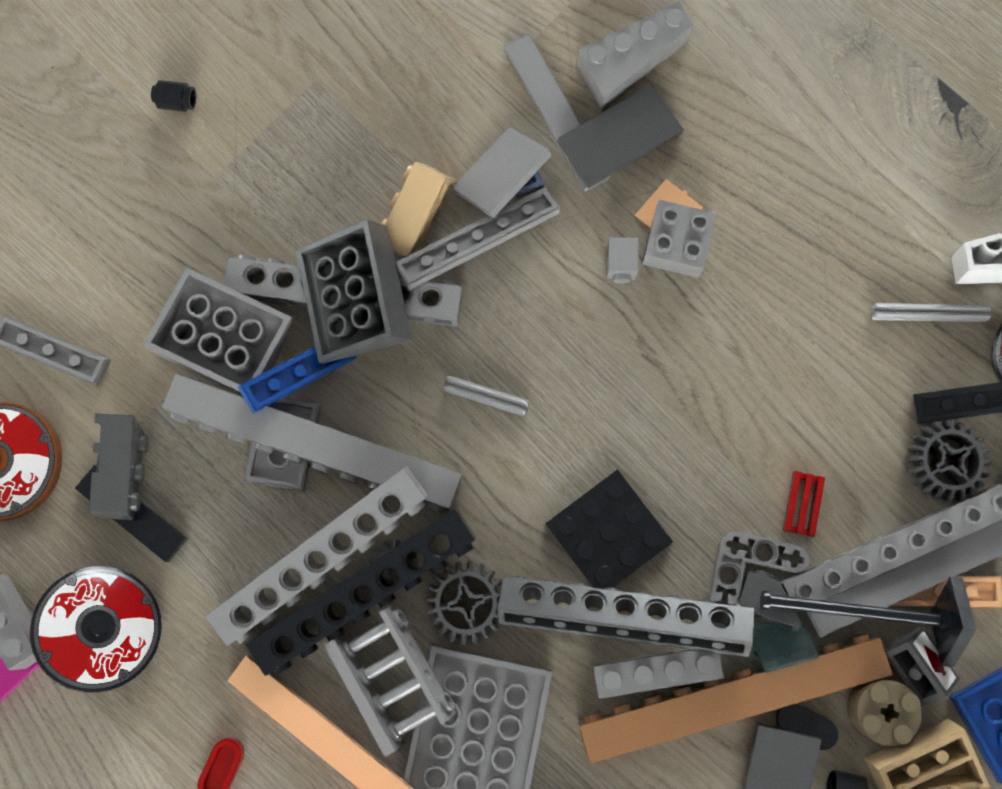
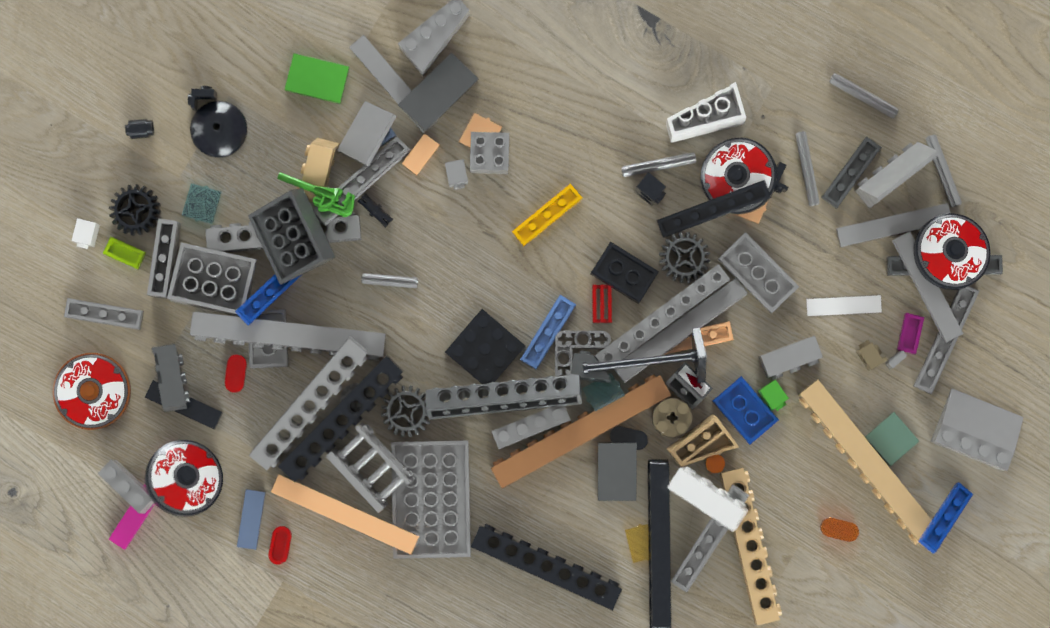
camera: 20 degrees left, 5 degrees up
(53, 226) = (85, 233): none -> white brick
(105, 268) = (124, 253): none -> lime tile
(125, 197) = (118, 213): none -> black gear
(159, 276) = (163, 258): none -> light grey brick
(186, 717) = (251, 519): none -> sand blue tile
(221, 483) = (235, 373): none -> red tile
(236, 222) = (201, 203): none -> clear light blue piece
(276, 66) = (203, 93): none -> black bracket
(288, 138) = (225, 140): none -> black dish
(418, 248) = (326, 198): none -> bright green piece
(447, 81) = (317, 78): none -> bright green tile
(488, 286) = (375, 210): none -> black pin
(574, 220) = (420, 154): none -> light nougat tile
(711, 528) = (547, 332): none -> medium blue tile
(745, 350) = (547, 215): none -> yellow tile
(848, 464) = (624, 272): none -> black tile
(918, 345) = (651, 189): none -> black brick

